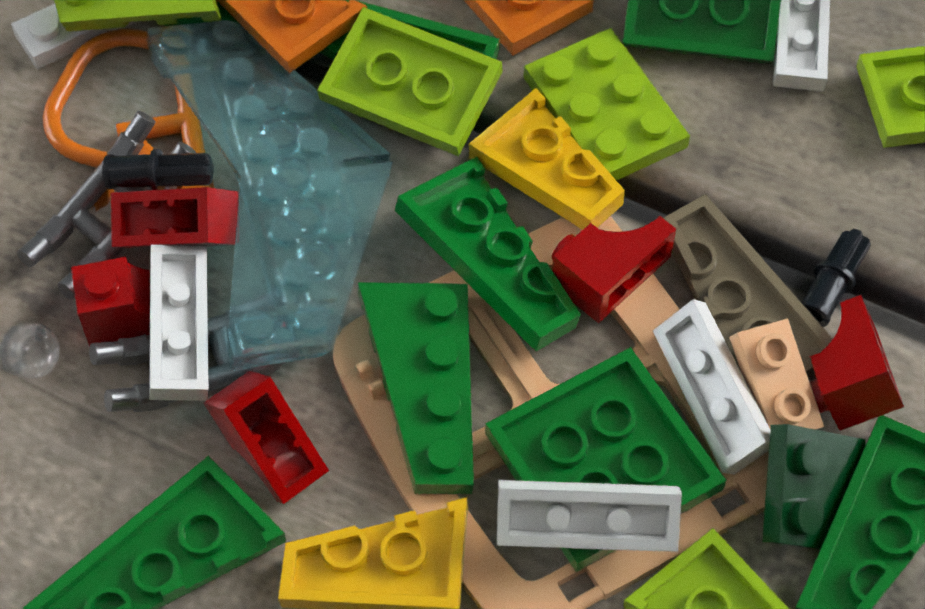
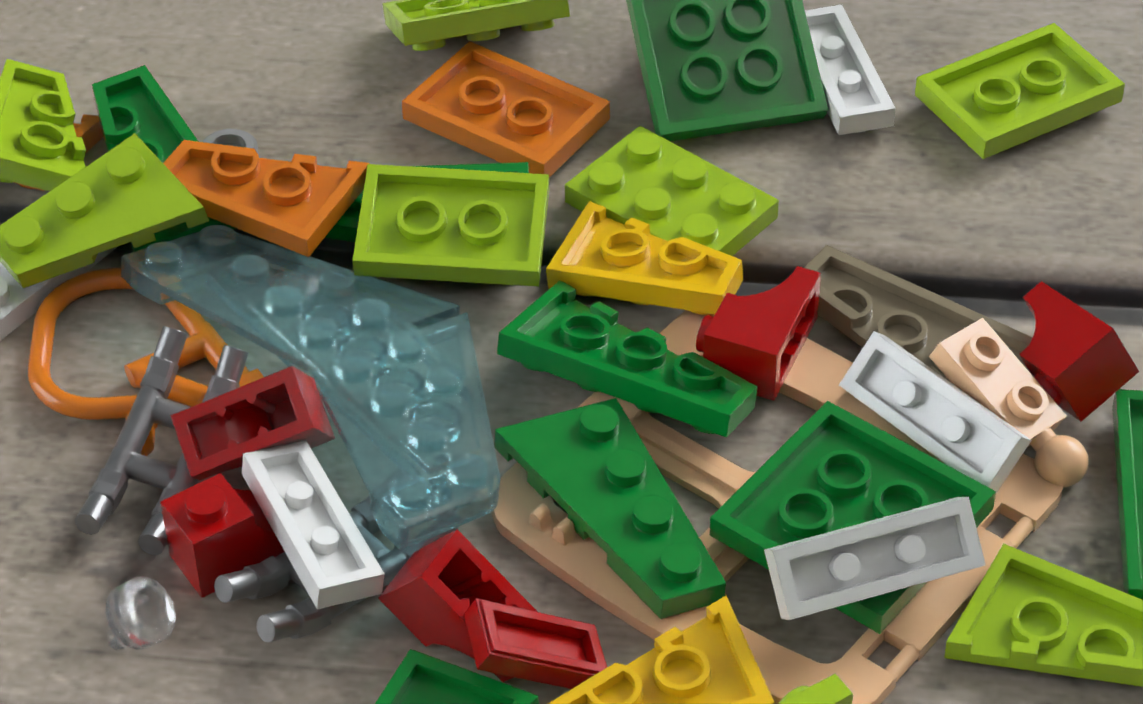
camera: 20 degrees left, 15 degrees down
(157, 170) = (215, 376): black axle -> none
(300, 488) = (533, 644): none -> red tile
(806, 483) = (1077, 472): dark green wing -> none
(836, 275) = (999, 280): black axle -> none

